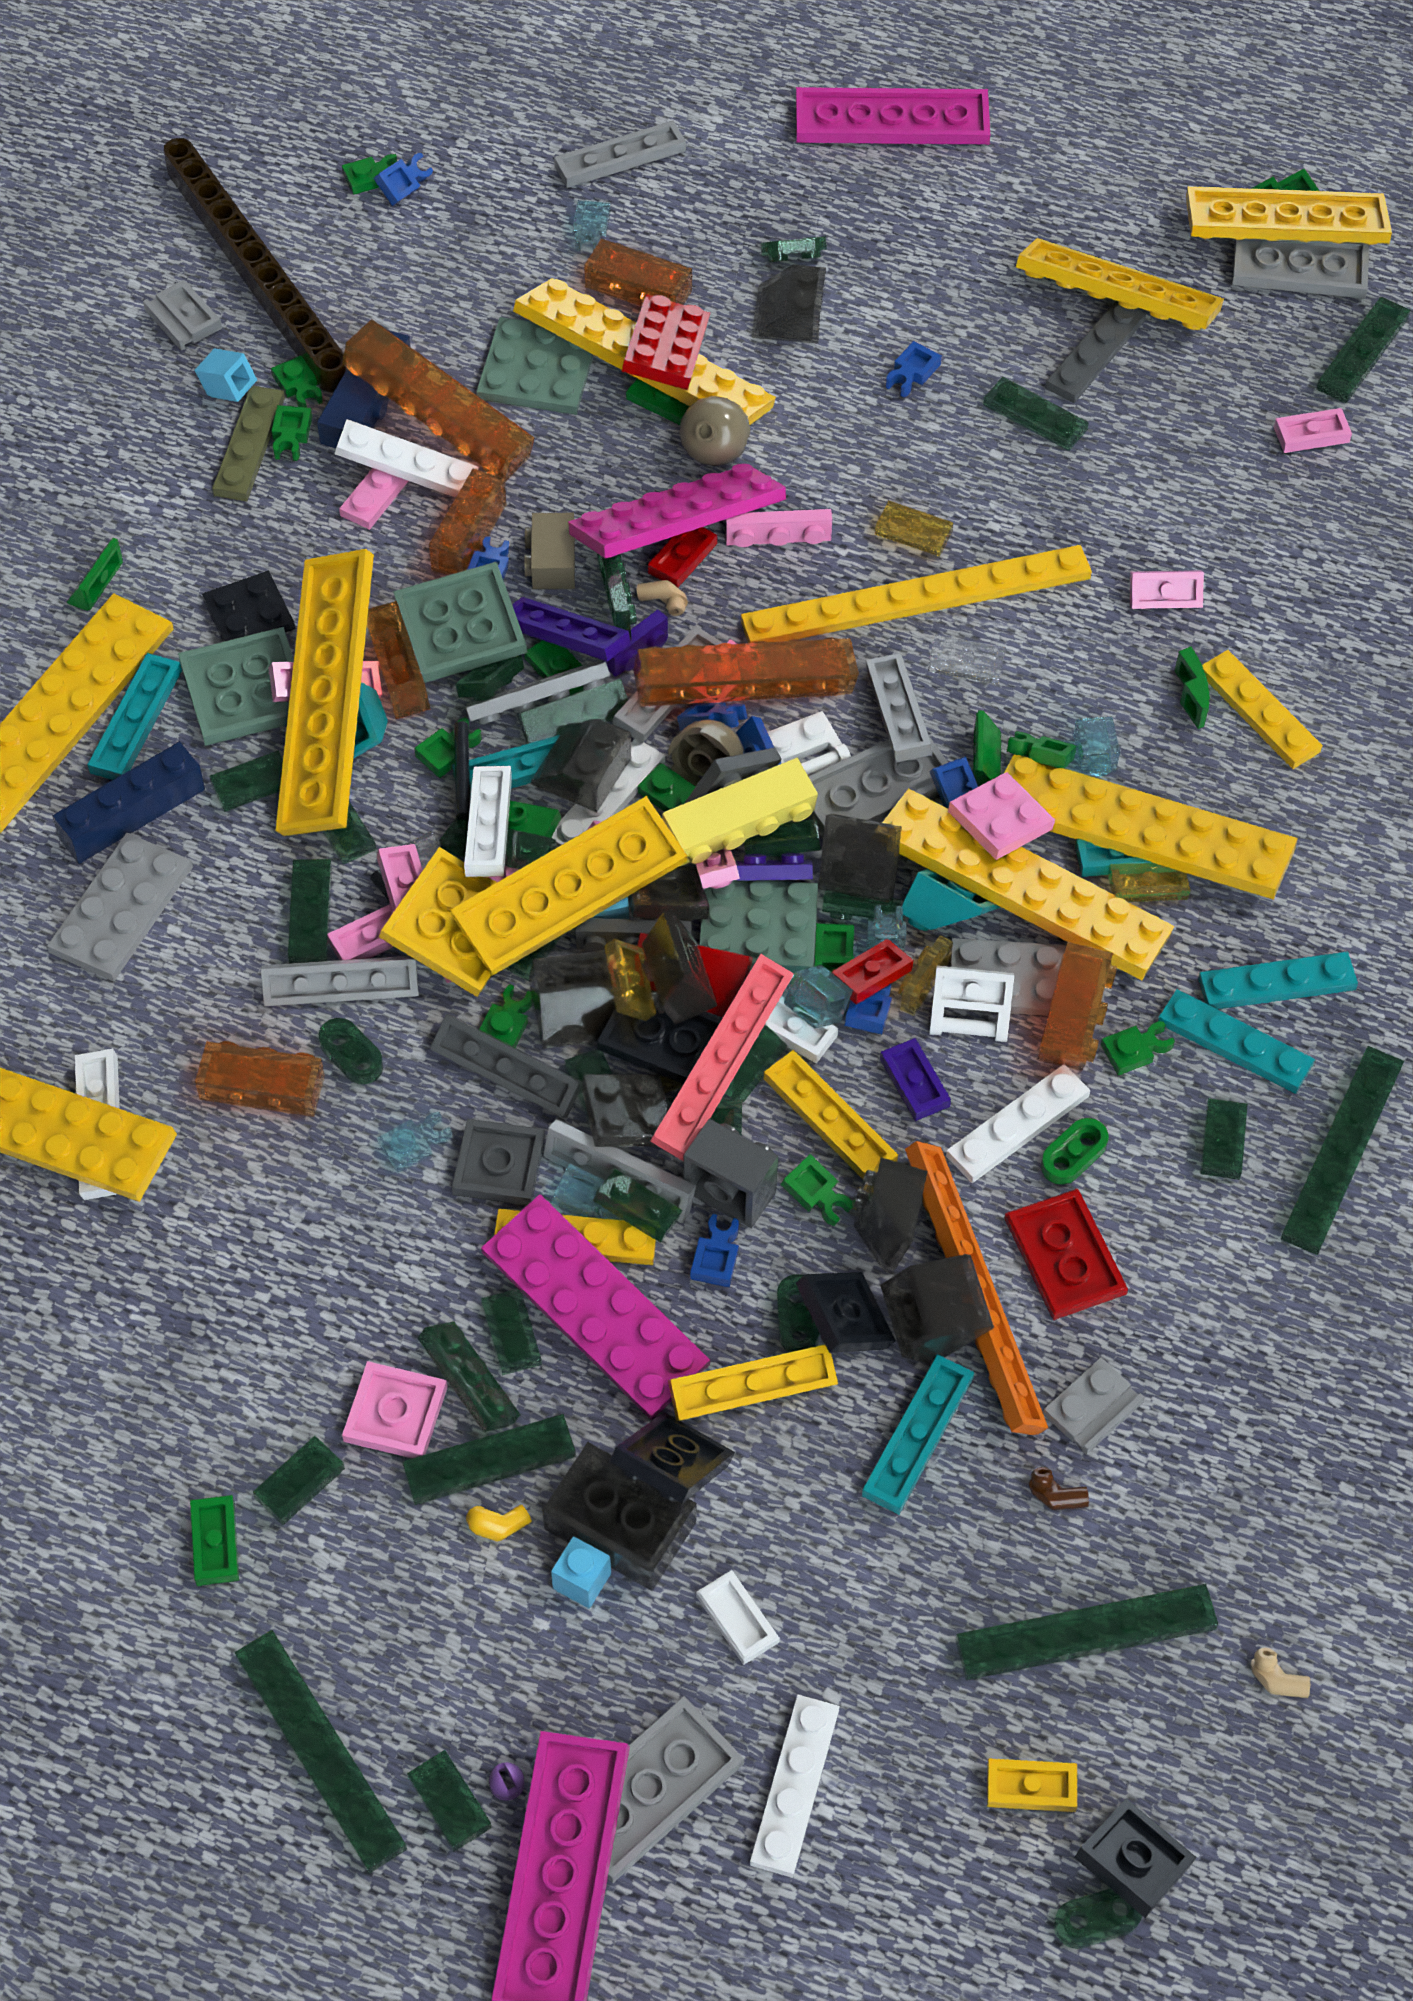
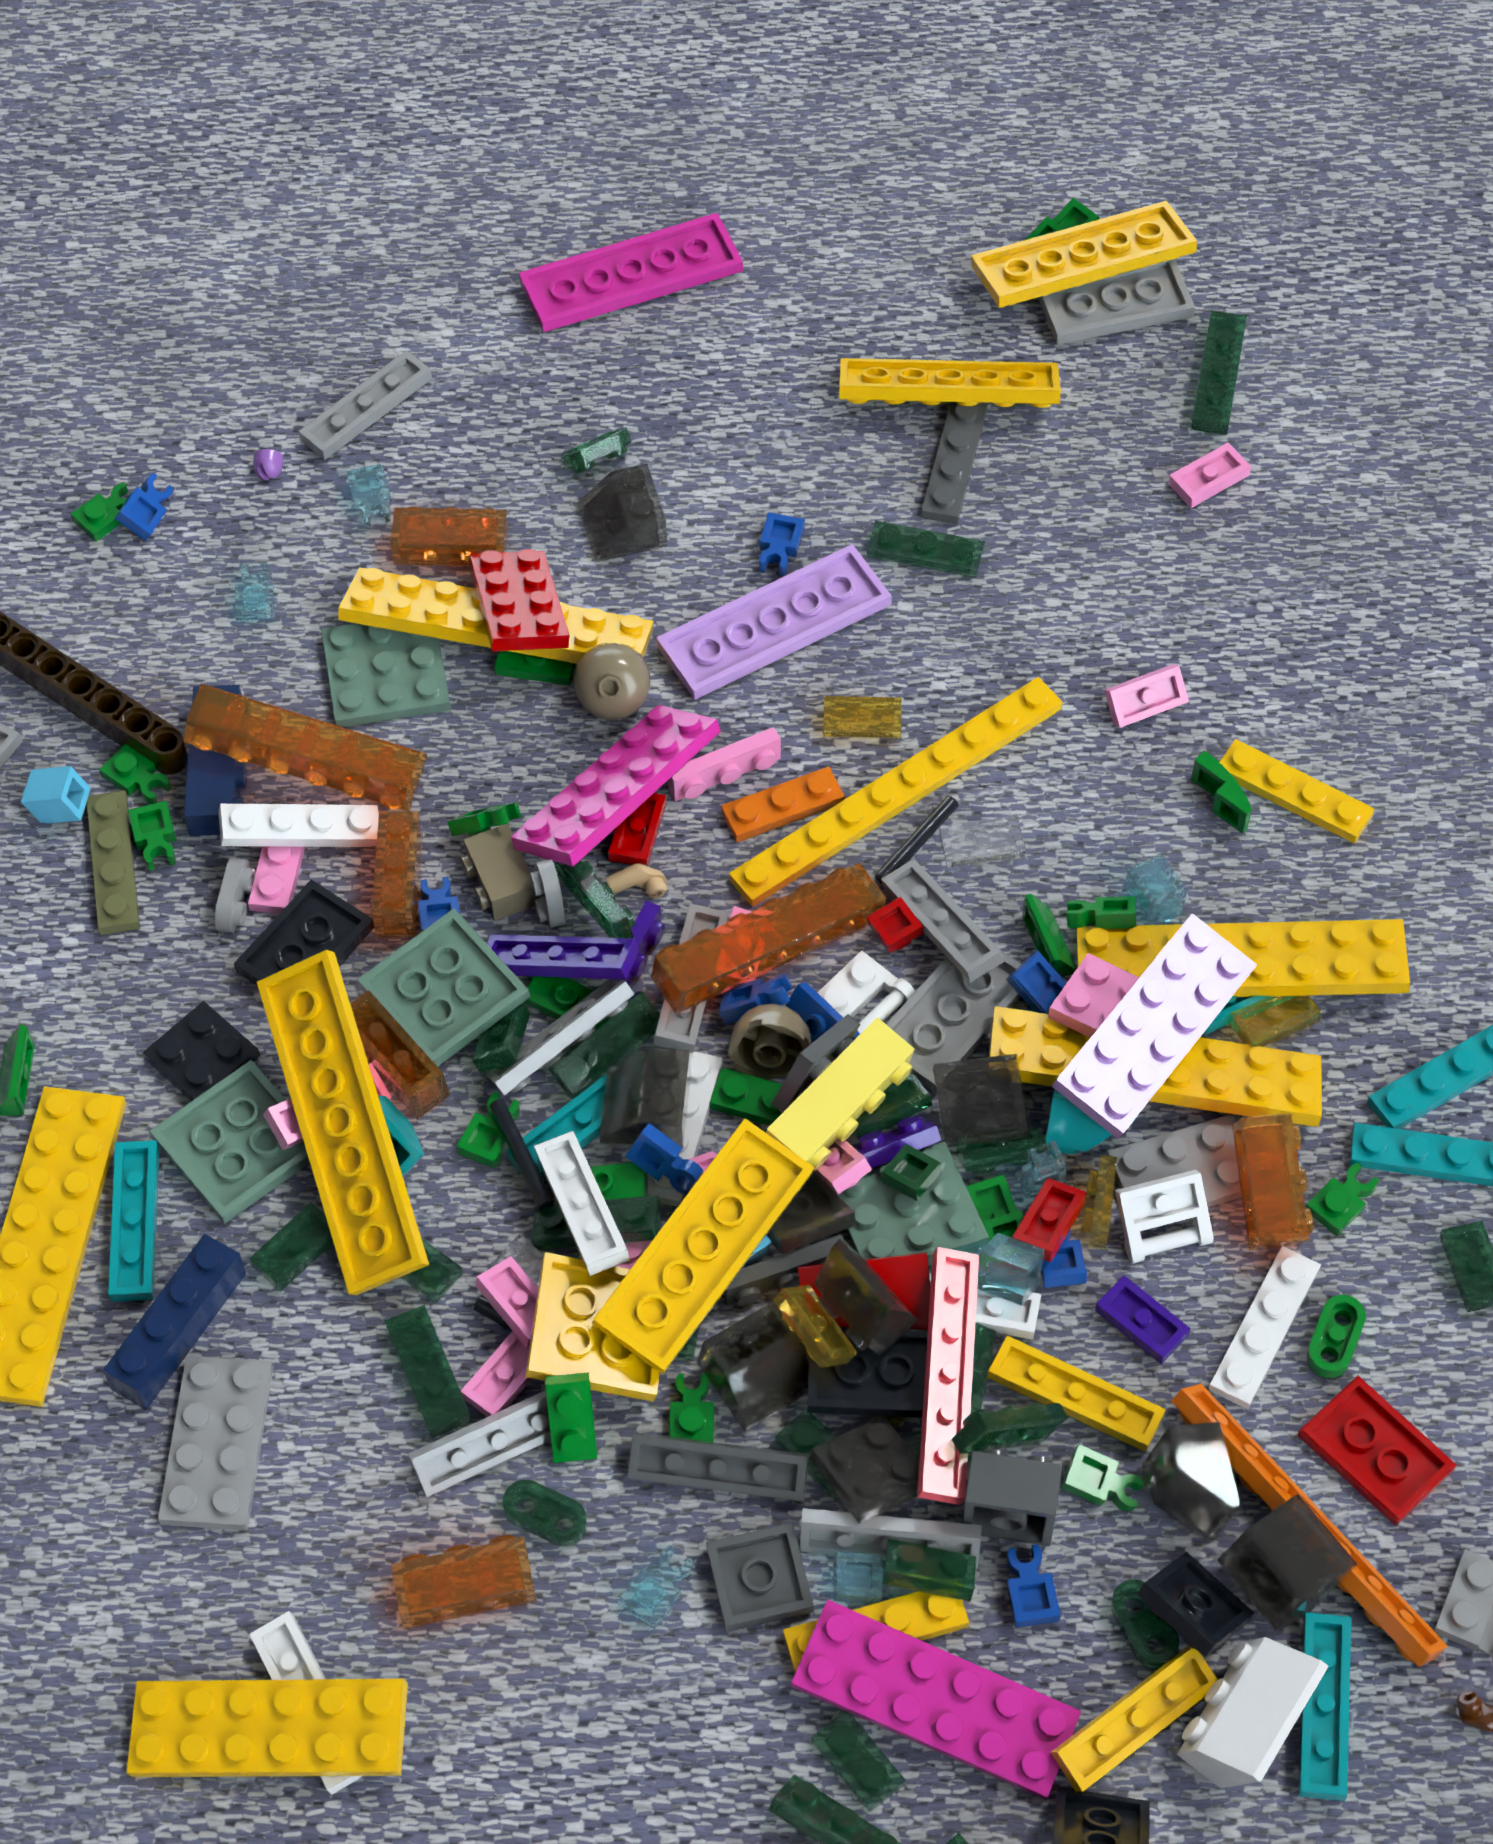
camera: 20 degrees left, 0 degrees up
(325, 501) = (230, 906): none -> light grey plate
(387, 536) = (305, 927): none -> black plate
(403, 983) = (571, 1417): none -> green plate
(459, 277) = (255, 597): none -> clear light blue plate
(518, 175) = (267, 463): none -> medium lavender hinge
(557, 504) = (482, 819): none -> green plate
(569, 807) = (659, 1157): none -> blue plate
(580, 566) = (547, 885): none -> light grey plate
(754, 1116) = (1008, 1427): none -> clear green plate
(772, 892) = (911, 1172): none -> dark green plate
(813, 575) = (782, 804): none -> orange plate
(846, 1408) = (1250, 1712): none -> white slope
(858, 699) = (895, 925): none -> red tile
(876, 429) = (773, 621): none -> lavender plate
(919, 638) = (919, 837): none -> black bar
(1031, 844) = (1154, 1026): none -> plate

